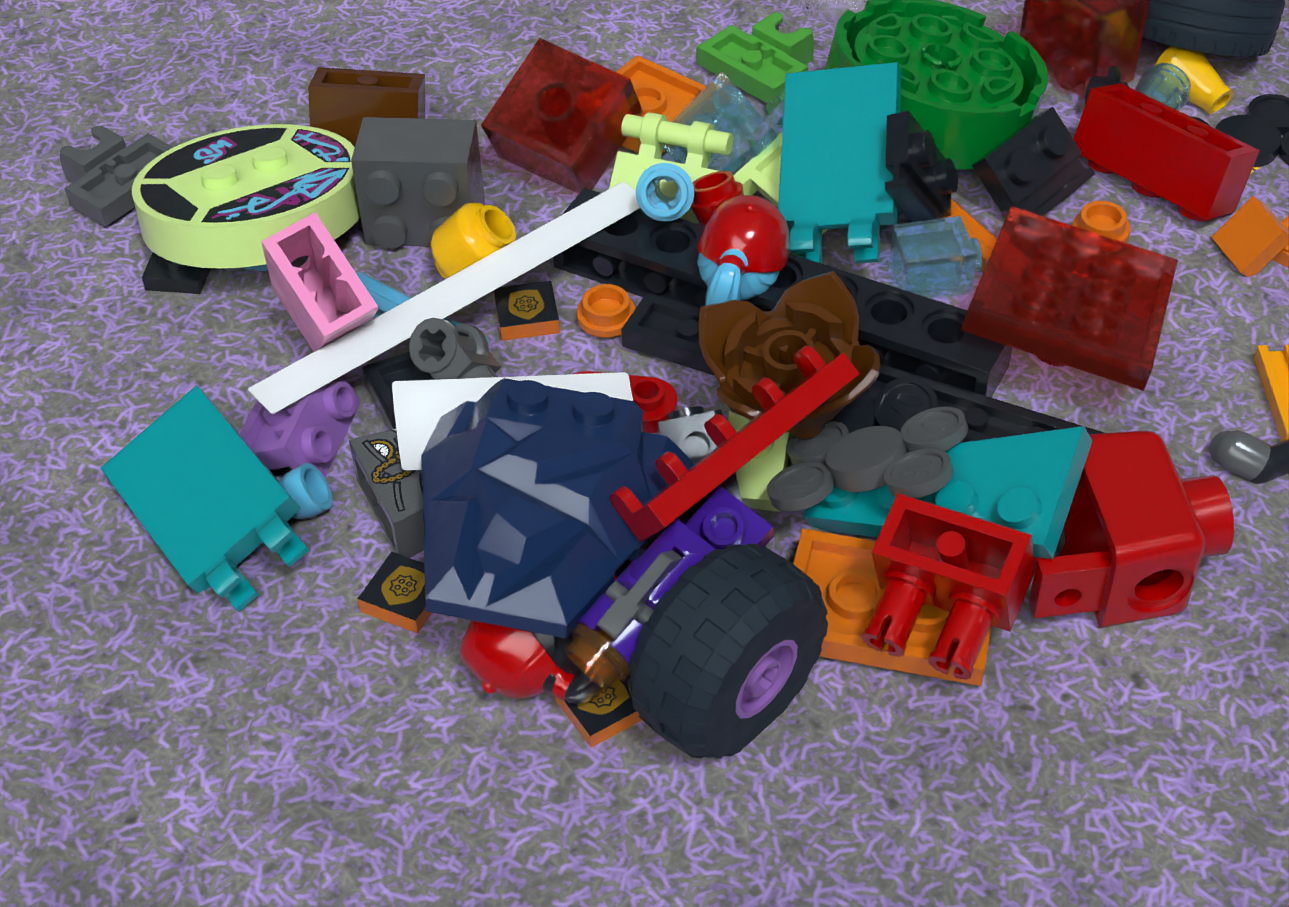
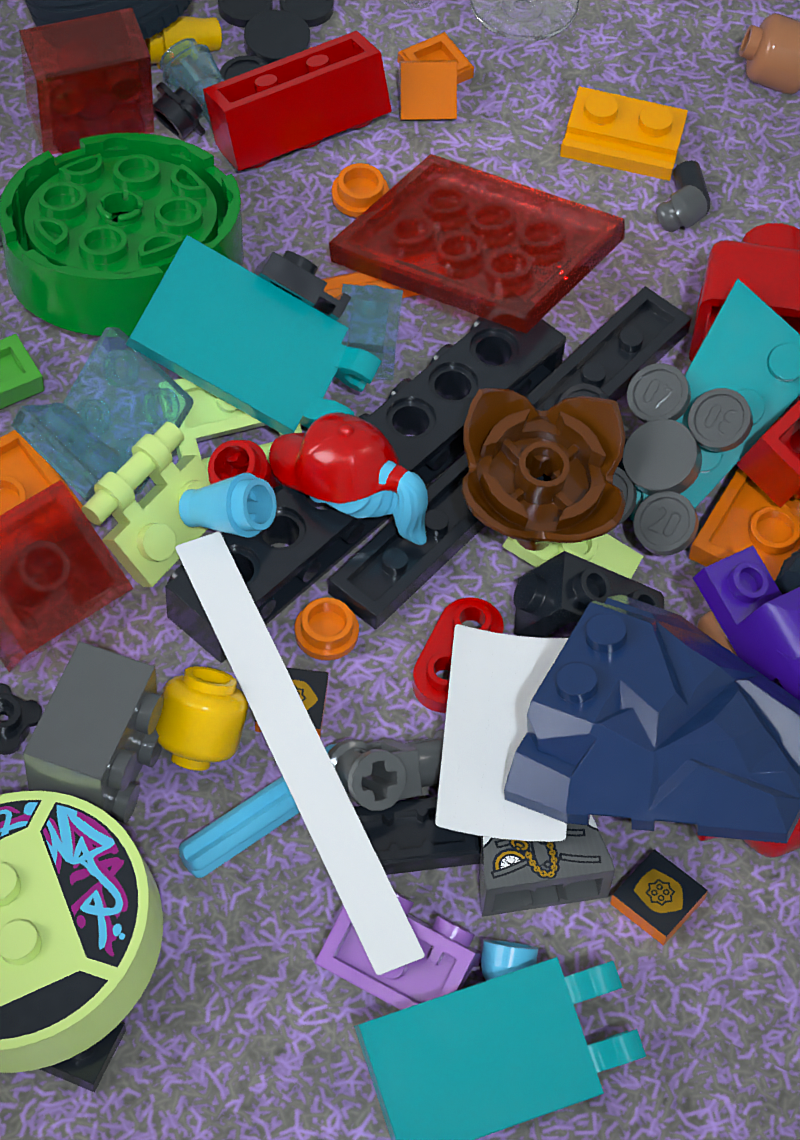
camera: 80 degrees left, 10 degrees up
(325, 292) = (250, 869): bright pink torso -> none
(733, 447) = (683, 531): red hinge -> none
(1033, 166) = (275, 207): black plate -> none

